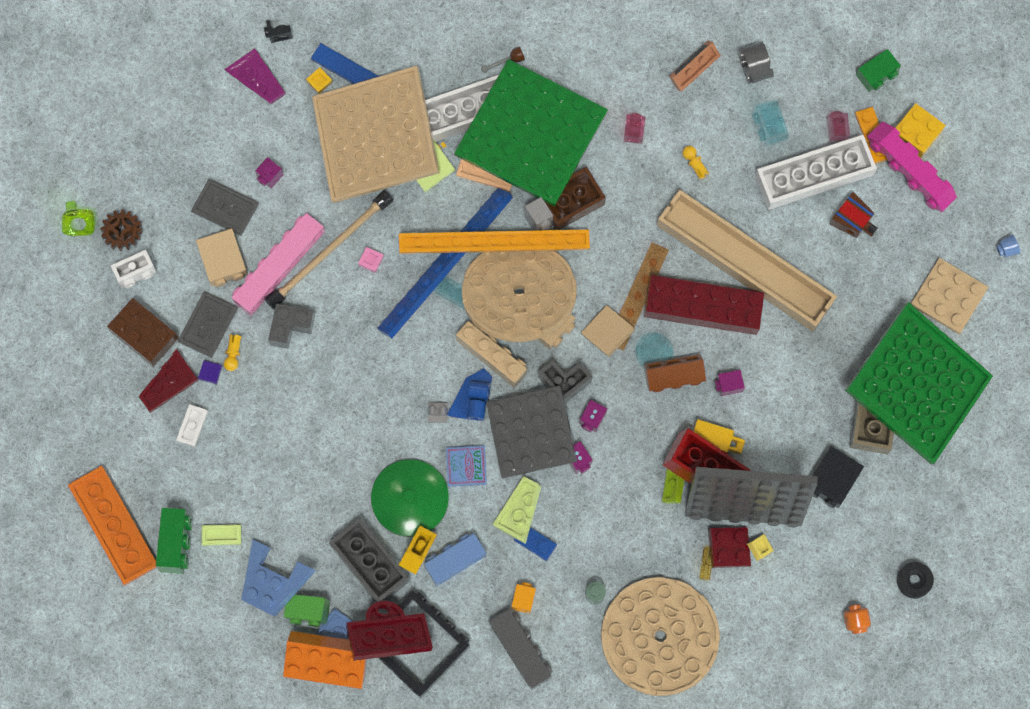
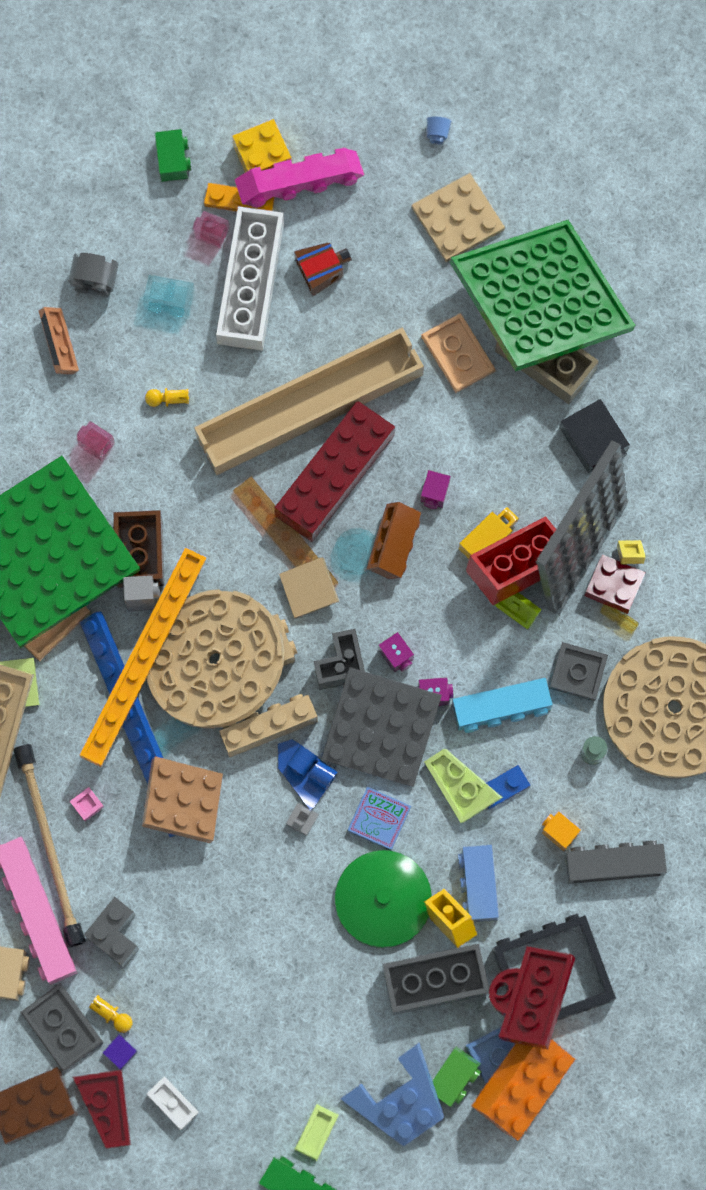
camera: 60 degrees left, 0 degrees up
(406, 321) = (182, 800): none -> medium nougat plate
(594, 510) = (502, 704): none -> medium azure brick
(649, 553) = (578, 671): none -> dark grey plate
(844, 348) = (458, 353): none -> light nougat tile

